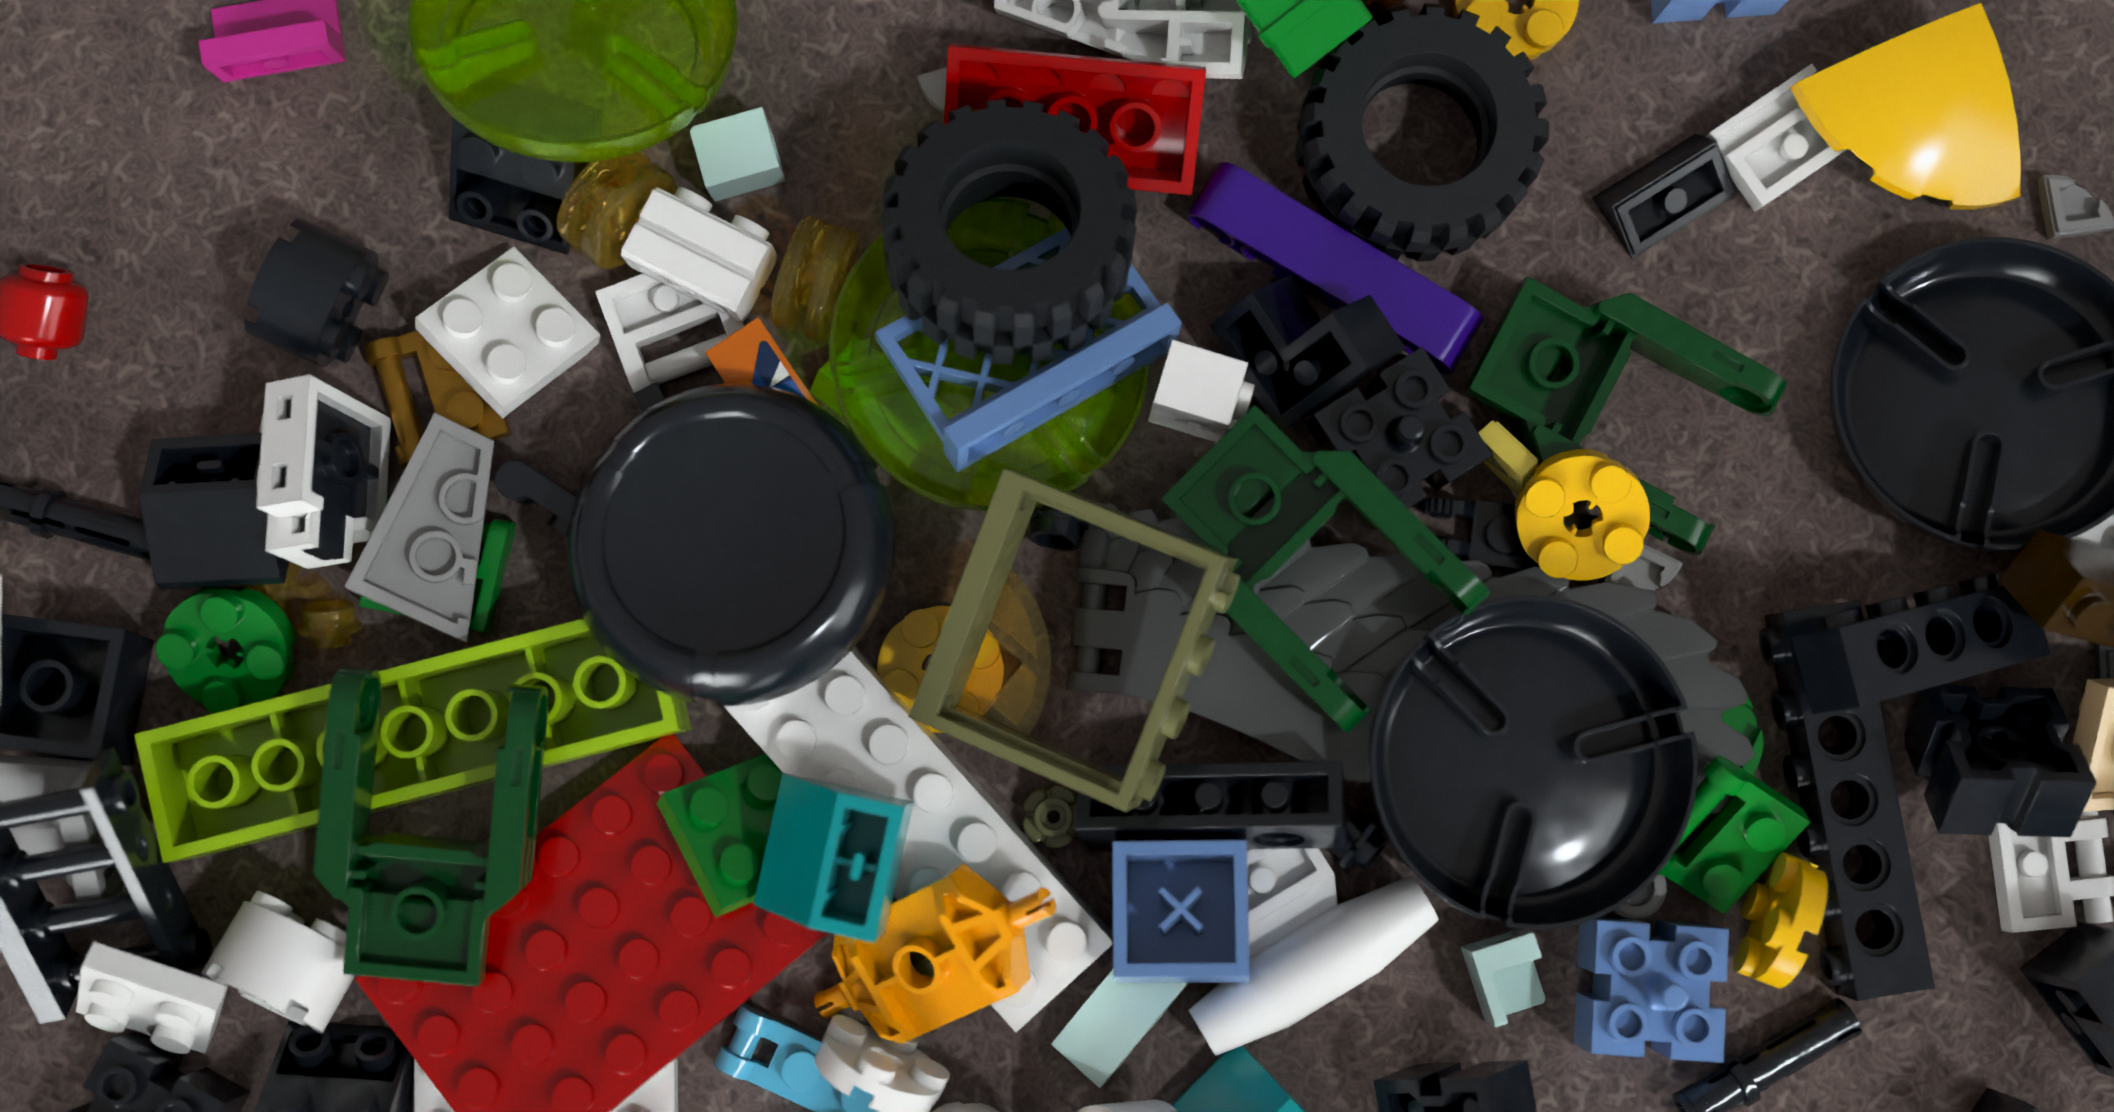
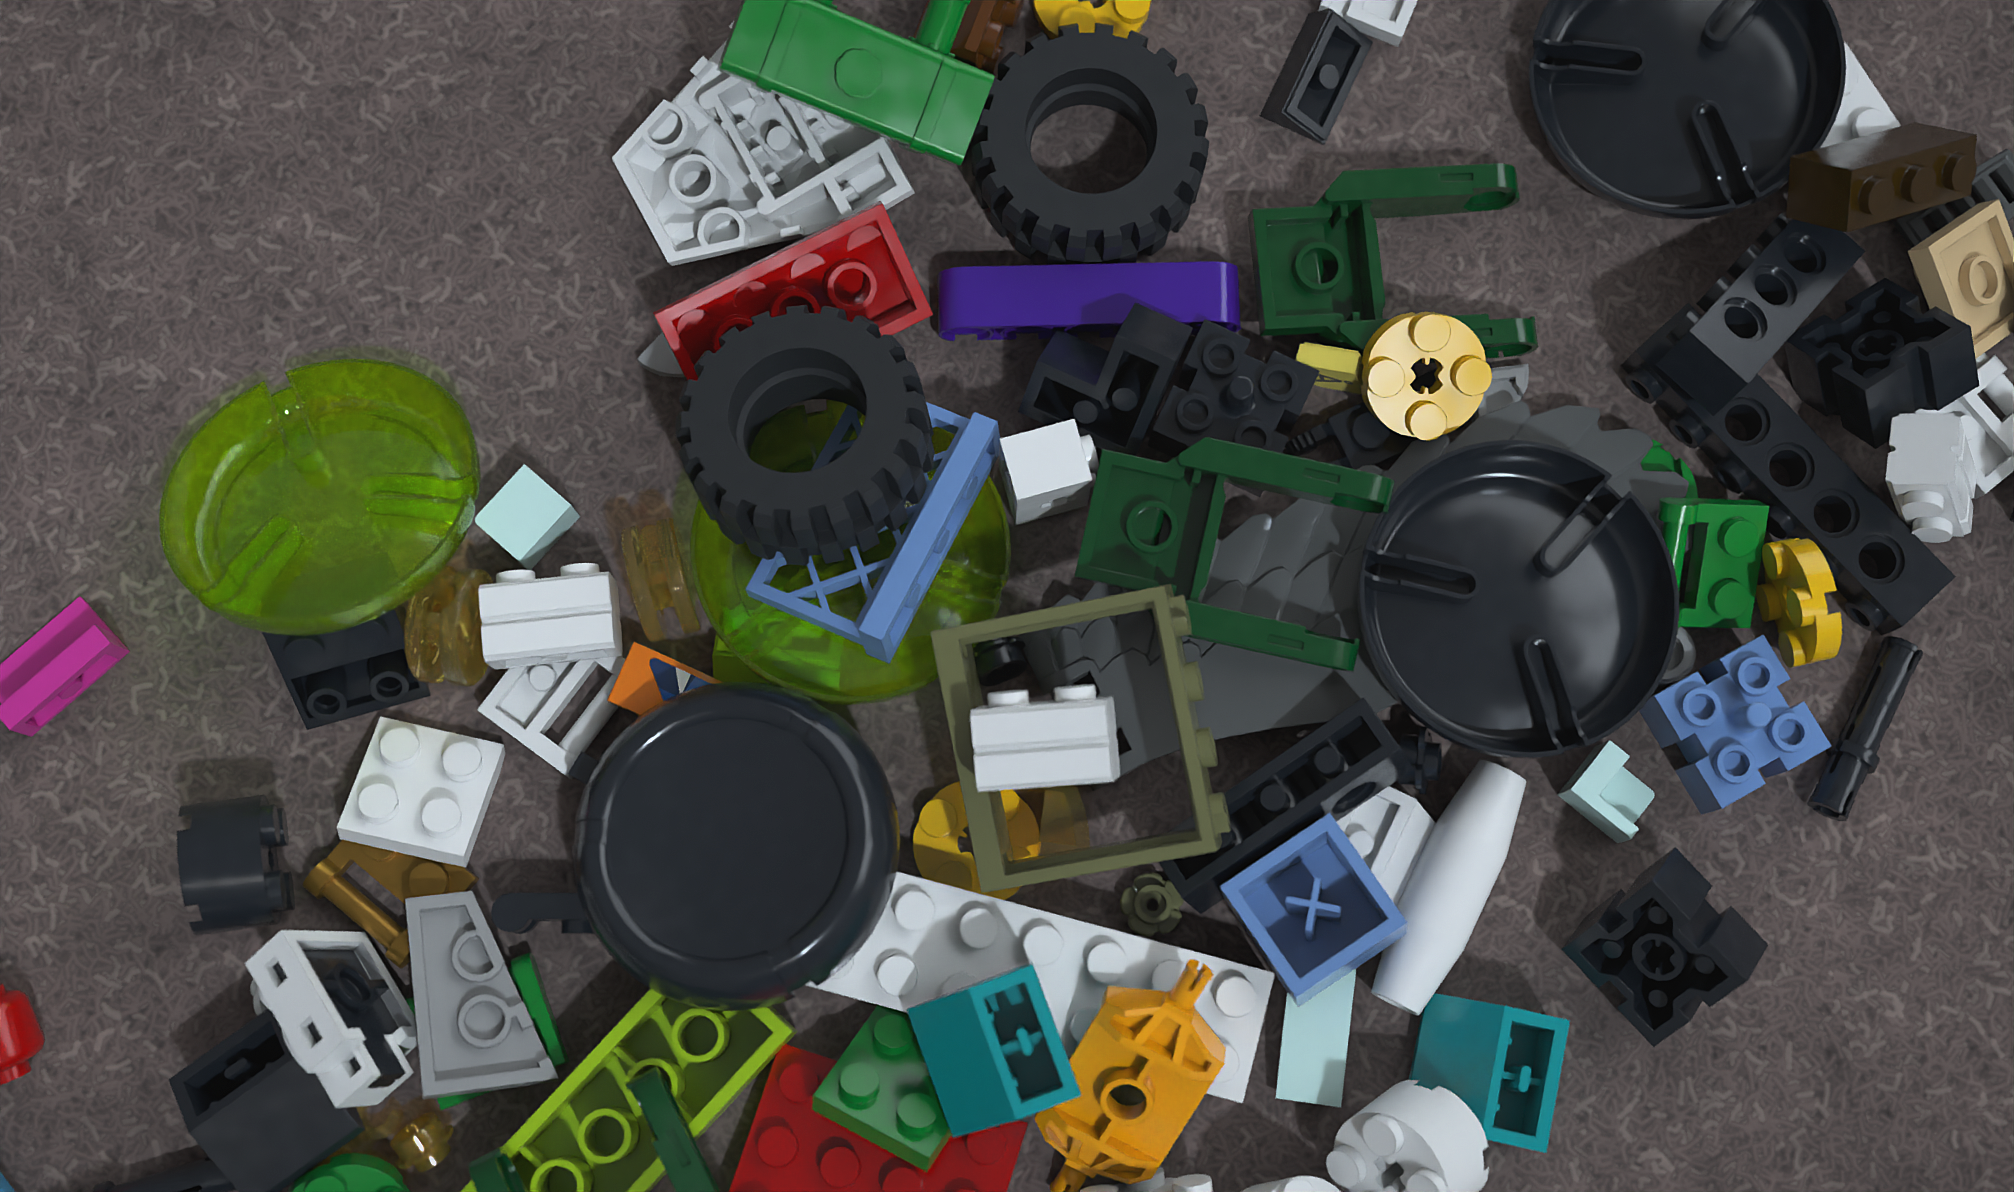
camera: 35 degrees left, 5 degrees down
(1038, 625) = (1045, 741): none -> white brick
(1972, 888) = (1931, 475): none -> white brick

